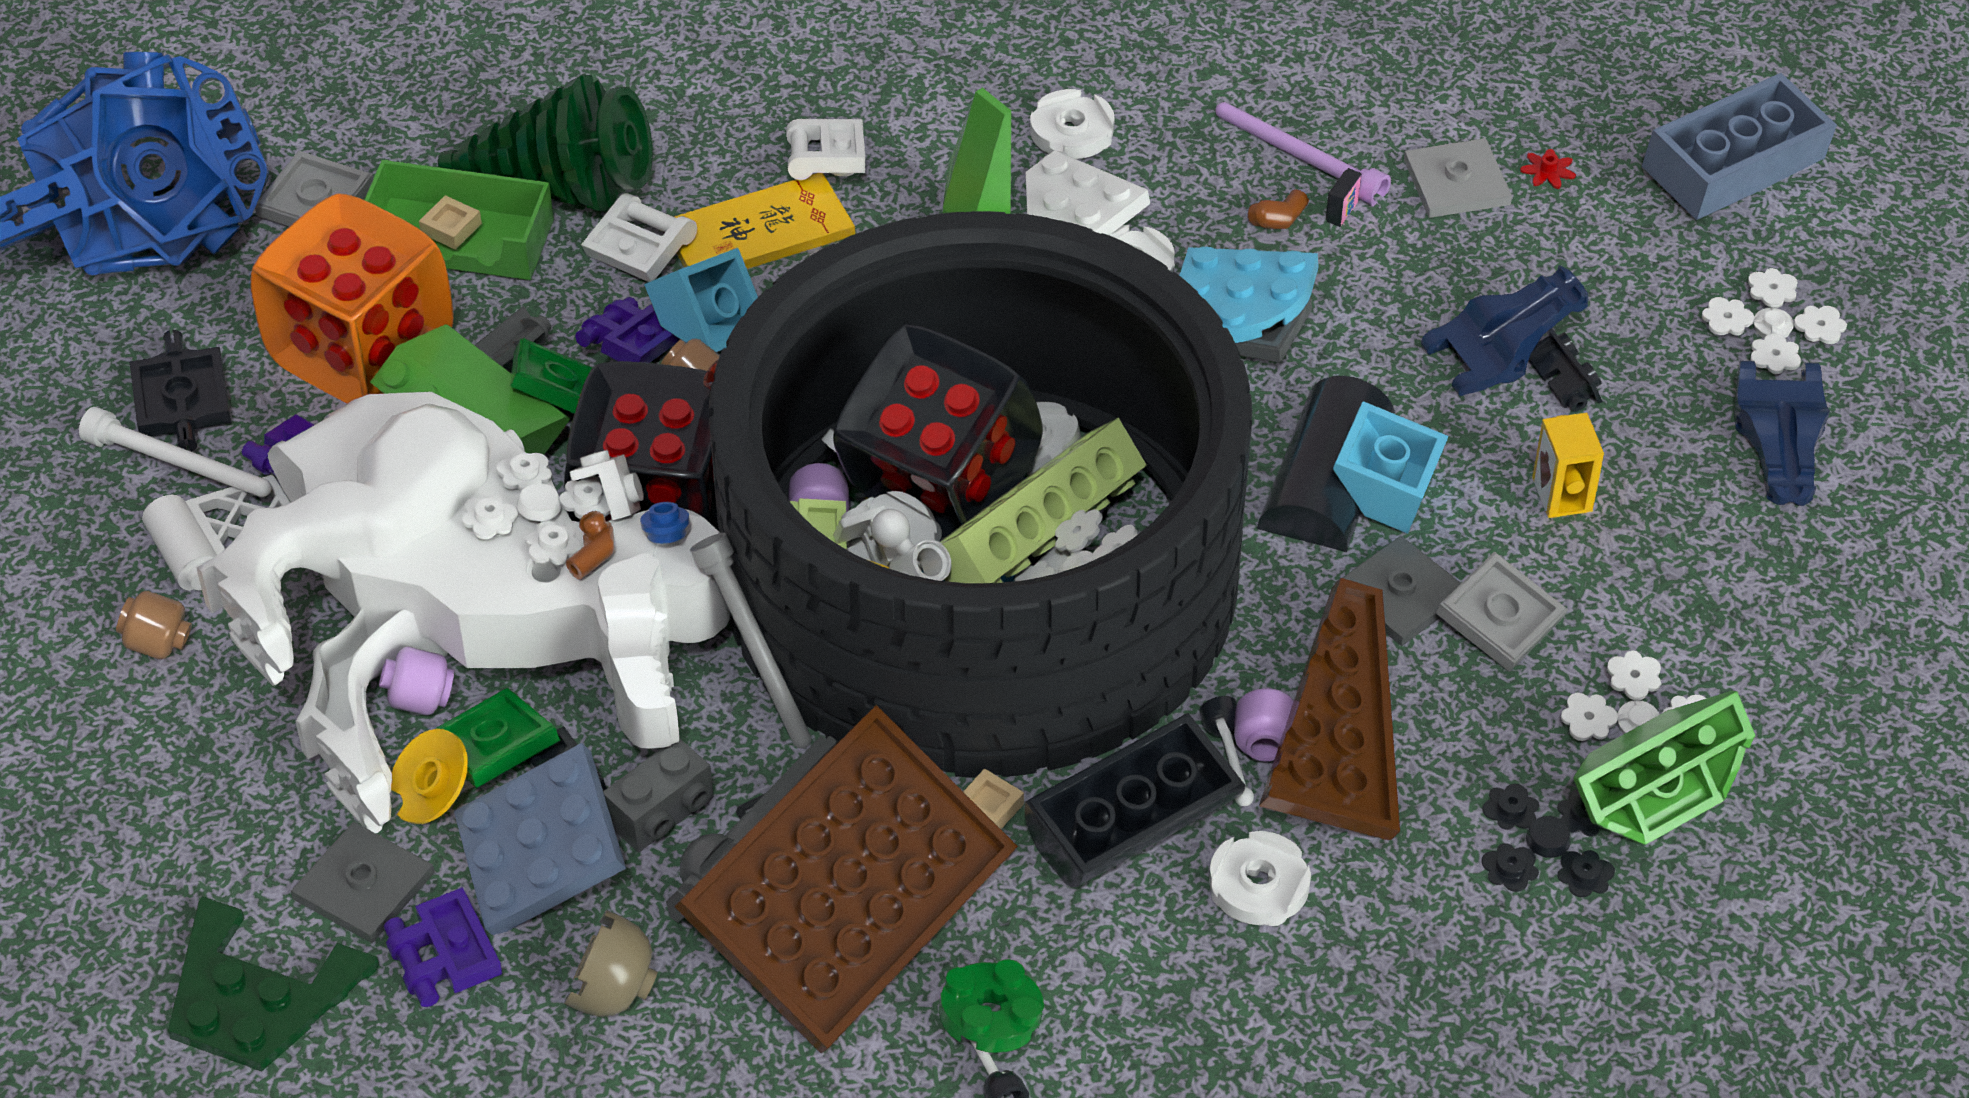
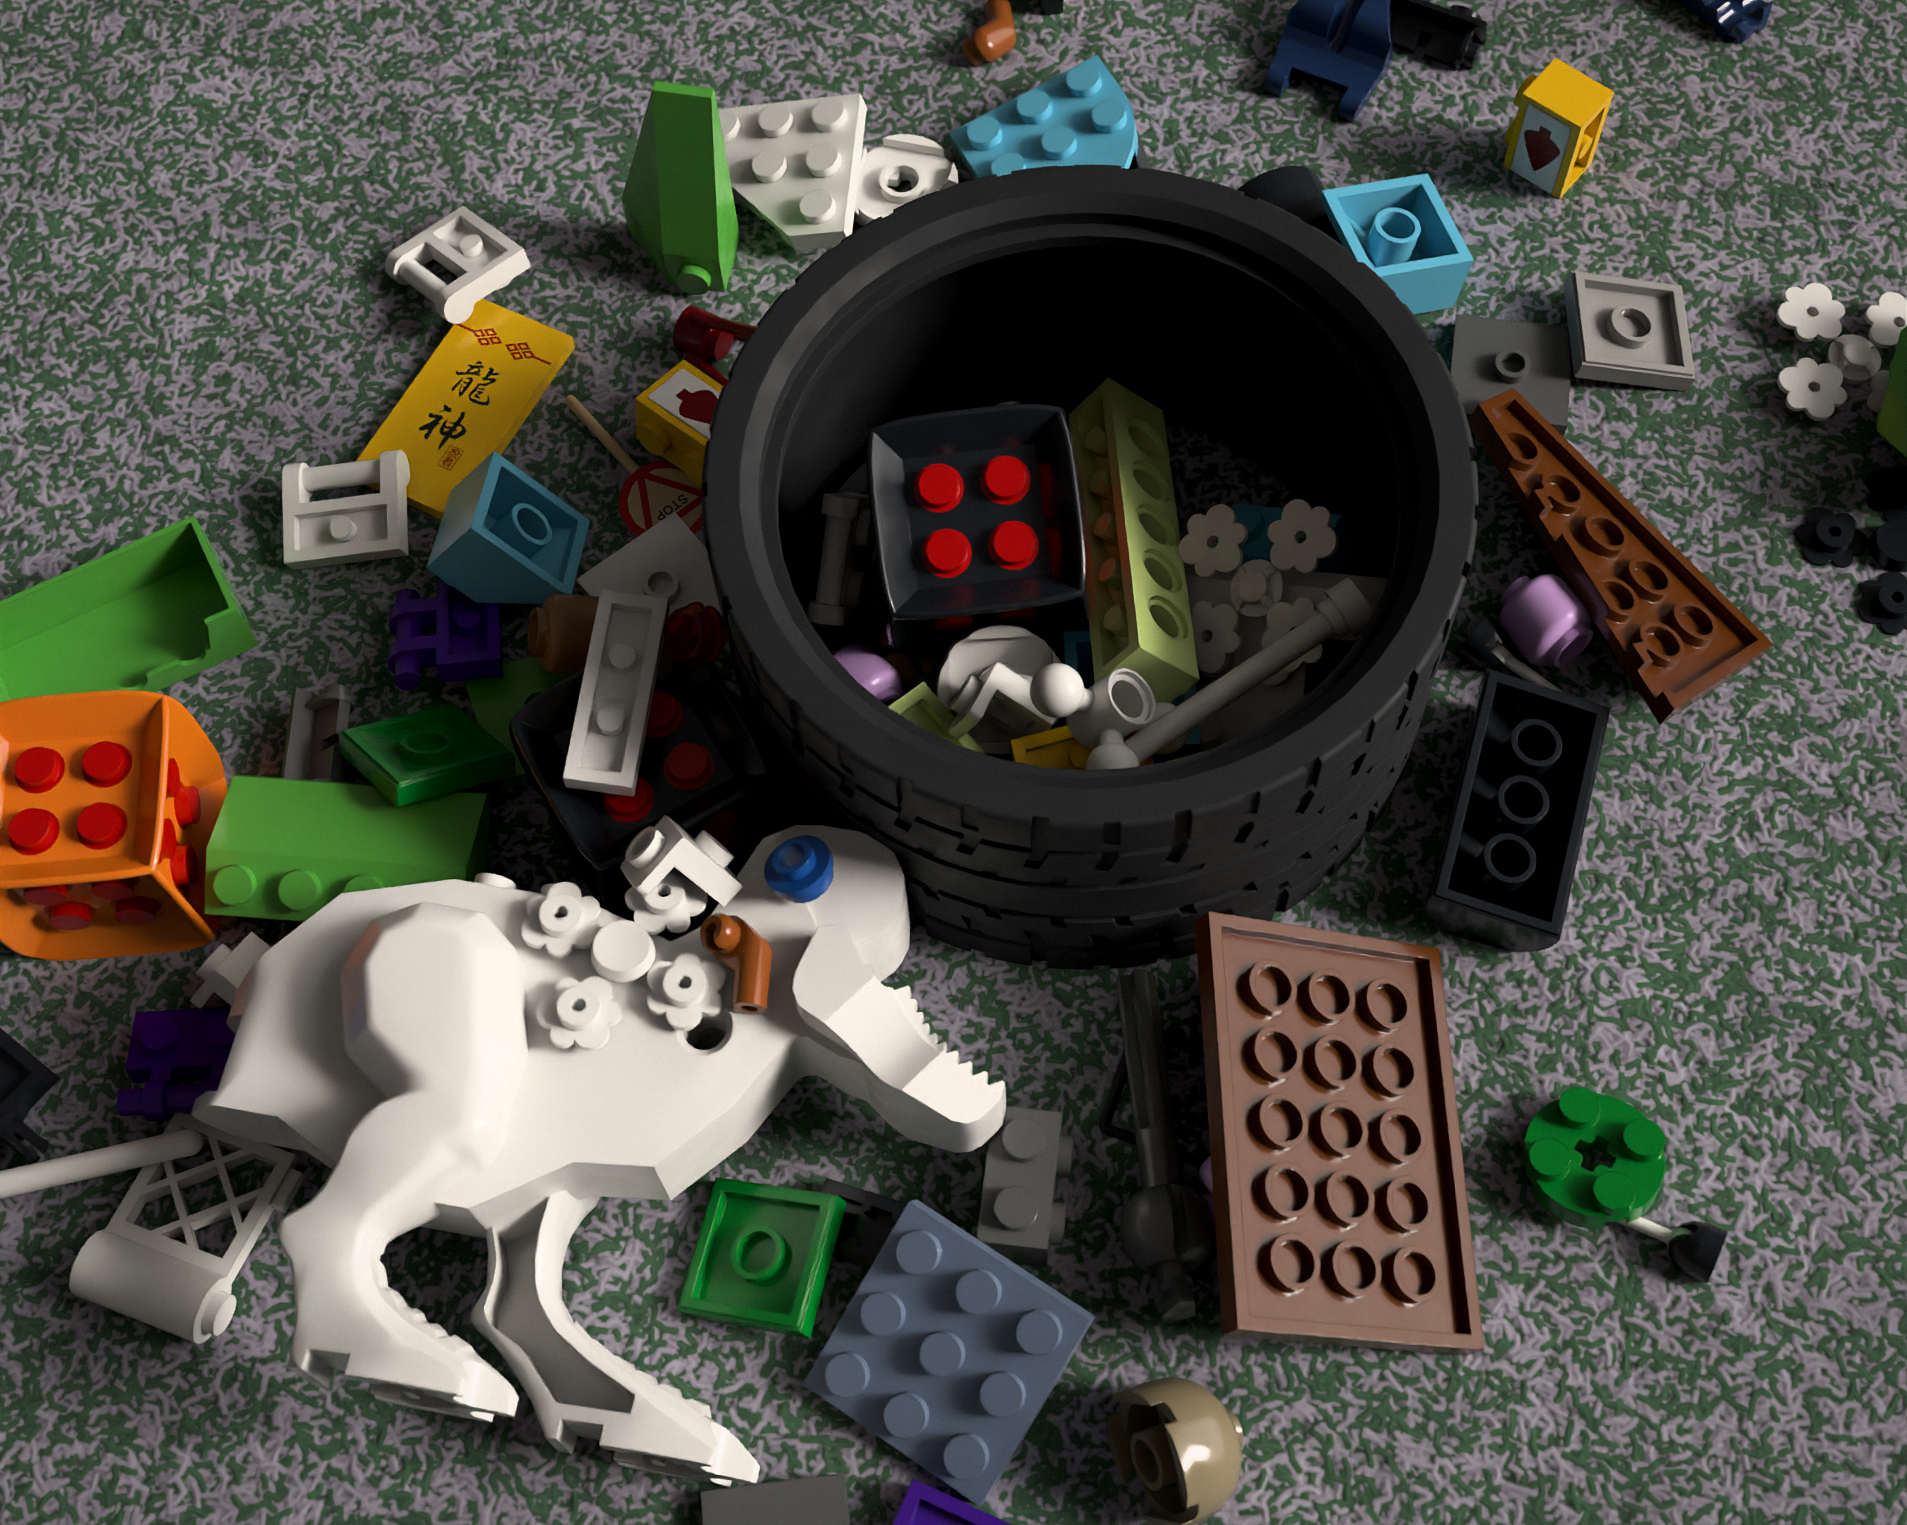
camera: 35 degrees left, 15 degrees up
(153, 625) = (217, 1425): medium nougat head -> none
(417, 681) = (615, 1255): lavender head -> none
(429, 775) = (713, 1369): yellow dish -> none
(450, 222) = (105, 639): tan plate -> none
(573, 139) = (161, 458): dark green plant -> none
(655, 381) = (616, 693): none -> white plate
(715, 557) = (900, 871): light grey piece -> none
(995, 797) = (1360, 909): tan plate -> none
(1093, 119) = (702, 43): white plate -> none
(1254, 902) = (1681, 830): white plate -> none

